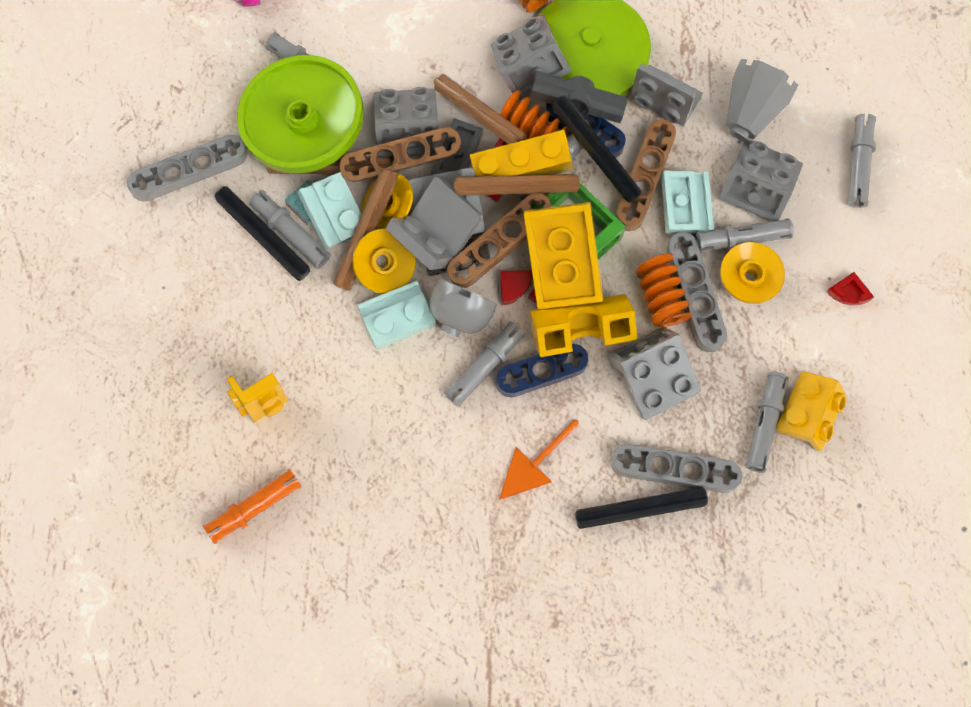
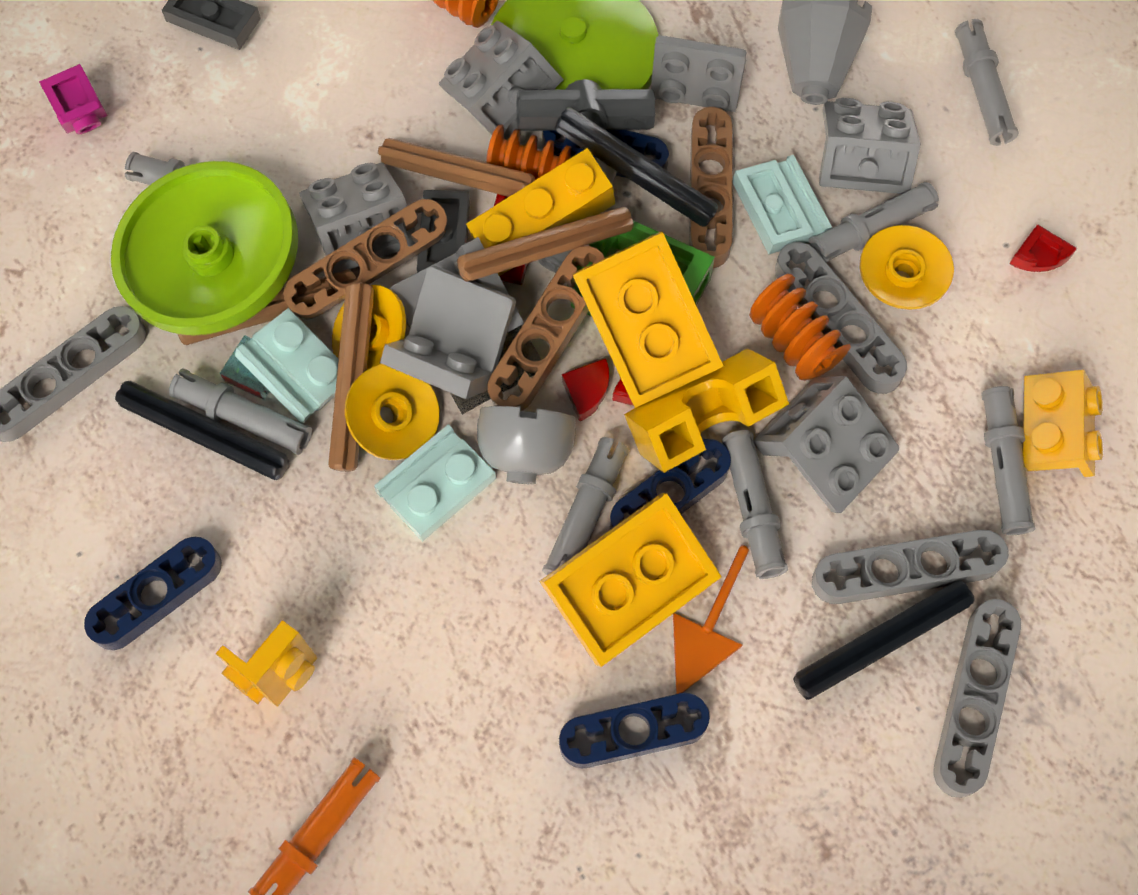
camera: 15 degrees left, 5 degrees down
(188, 321) = (131, 590): none -> dark blue beam
(438, 515) = (675, 733): none -> dark blue beam
(495, 417) = (630, 579): none -> yellow plate
(590, 408) = (758, 521): none -> light grey pin
(684, 561) = (985, 699): none -> light grey beam

